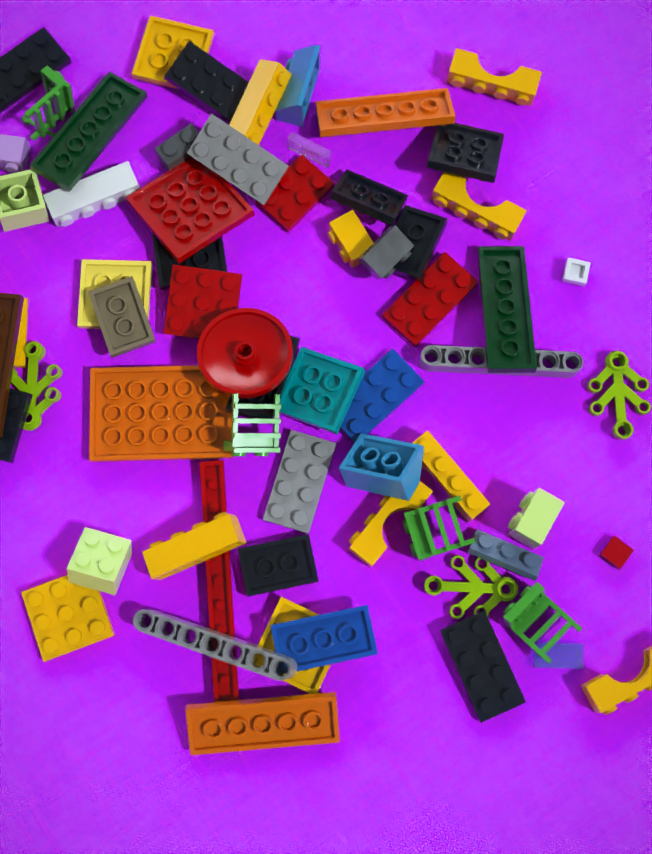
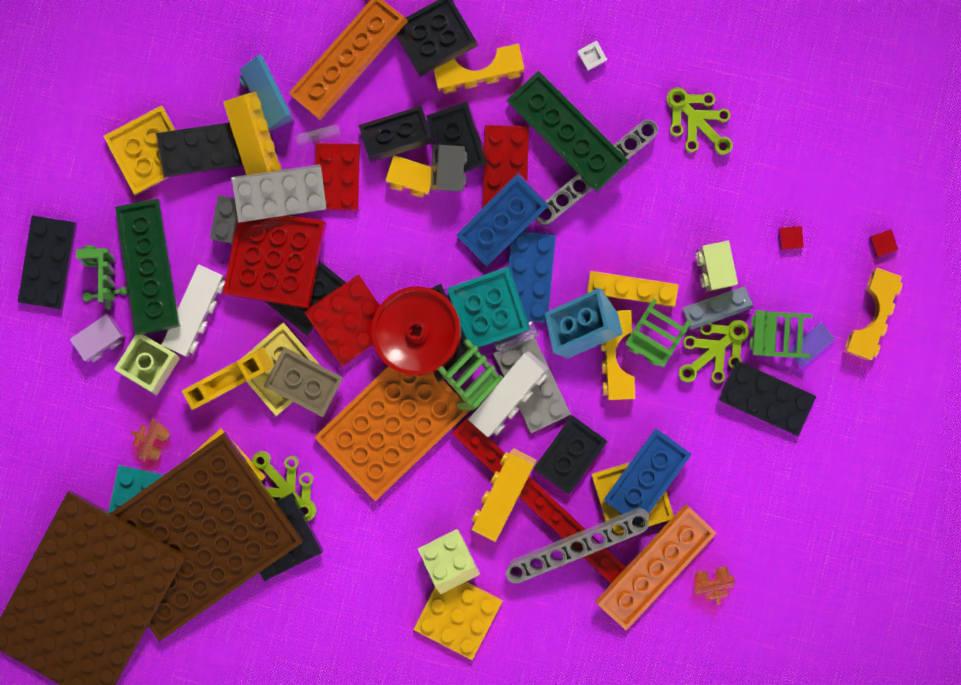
camera: 45 degrees left, 10 degrees up
(85, 265) = (228, 378): none -> yellow arch
(272, 470) = (508, 394): none -> white brick
(308, 789) = (723, 581): none -> hips
(318, 434) = (514, 341): none -> clear tile
(393, 330) = (502, 219): none -> blue plate

